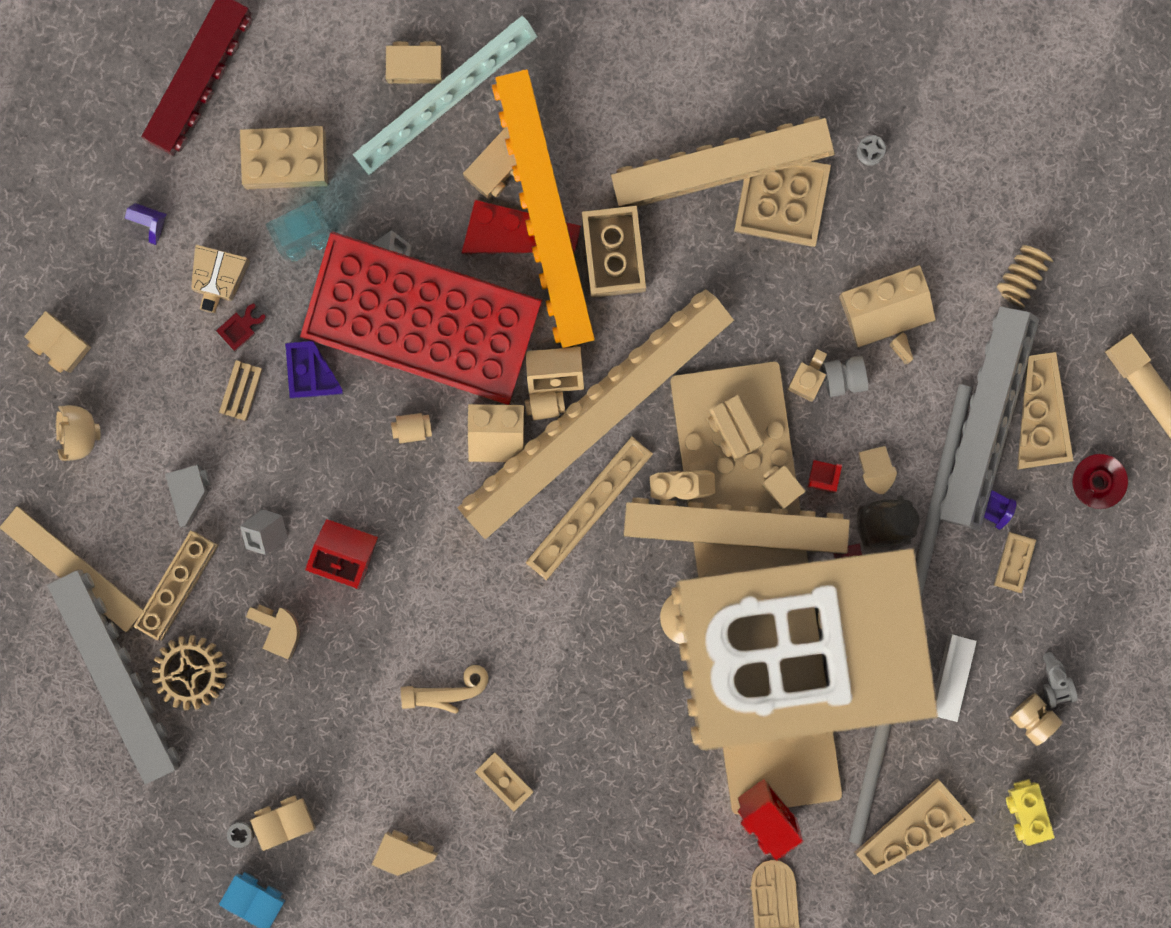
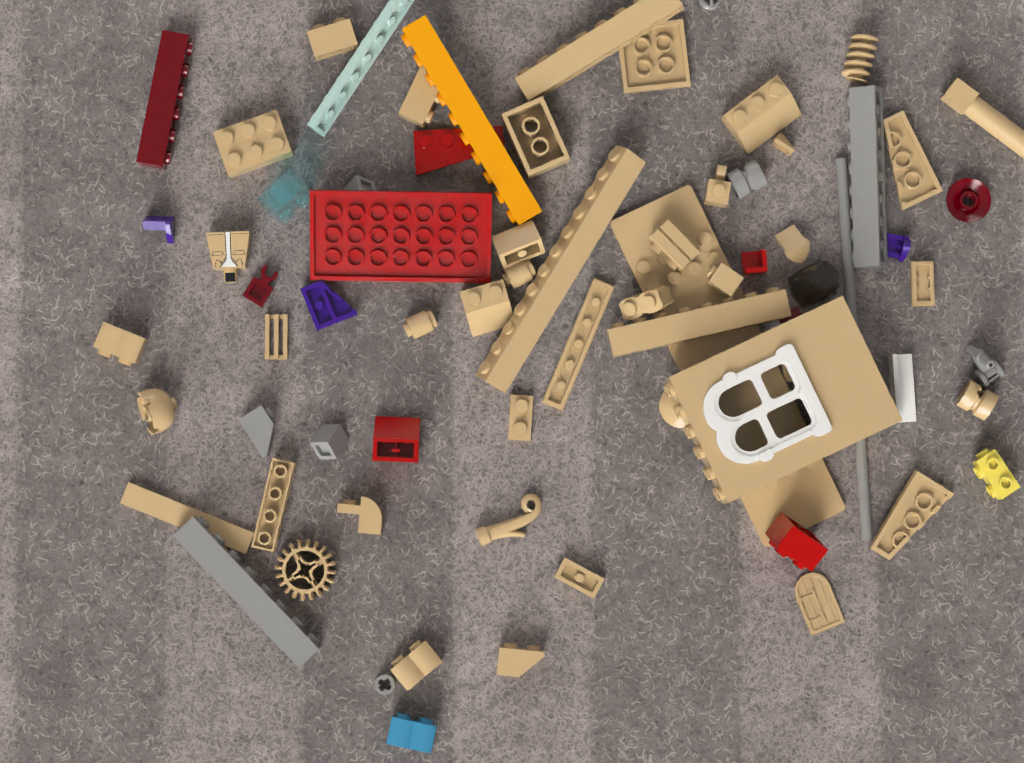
camera: 30 degrees left, 0 degrees up
(495, 573) = (520, 417): none -> tan plate

